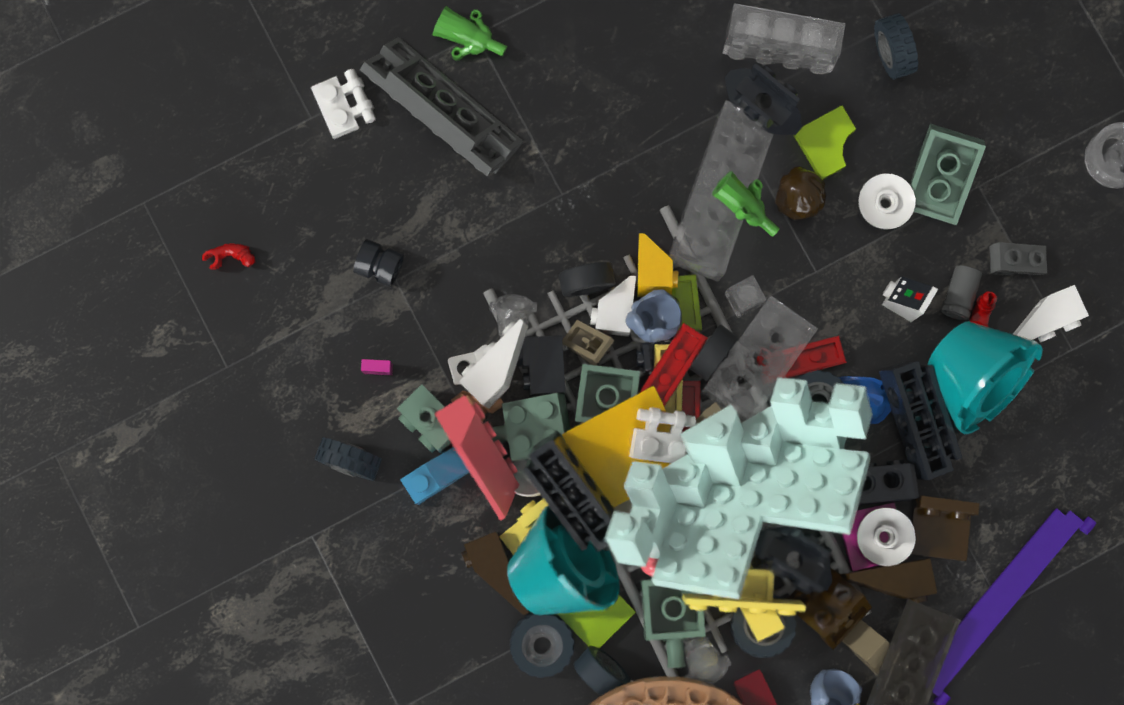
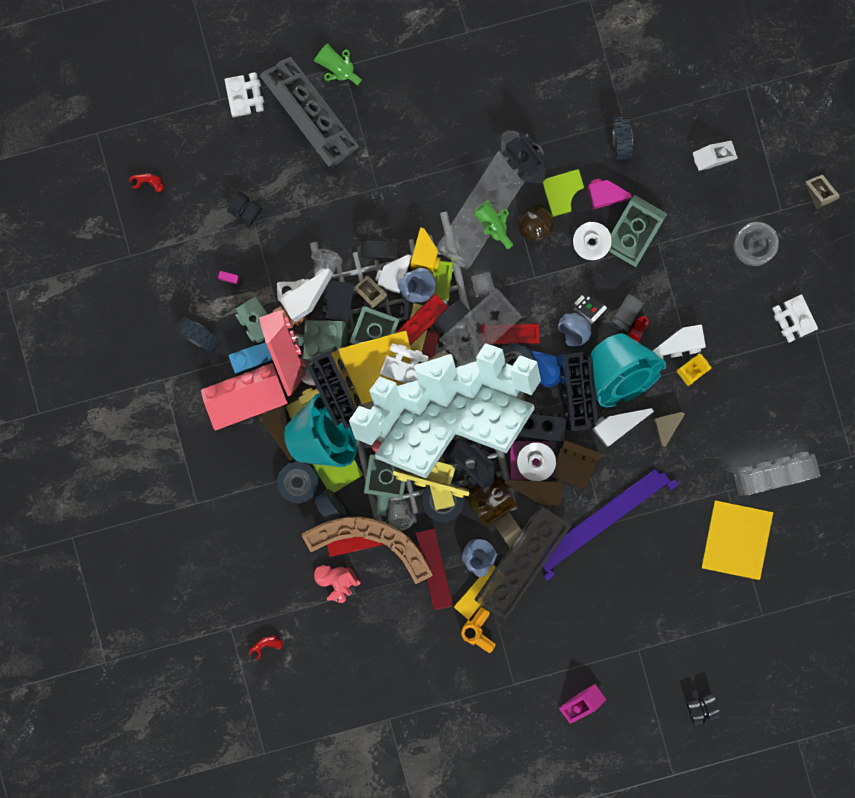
camera: 10 degrees right, 5 degrees up
(435, 536) = (243, 396): none -> coral slope
(783, 38) = (547, 115): clear brick -> none
(890, 130) = (606, 193): none -> dark pink slope
(894, 330) = (576, 329): none -> sand blue hair
(986, 460) = (615, 426): none -> white slope
(1017, 259) = (670, 298): dark grey plate -> none
(1028, 45) = (714, 155): none -> white slope
(1060, 443) = (666, 426): none -> dark tan slope
(1078, 351) = (694, 369): none -> yellow bracket

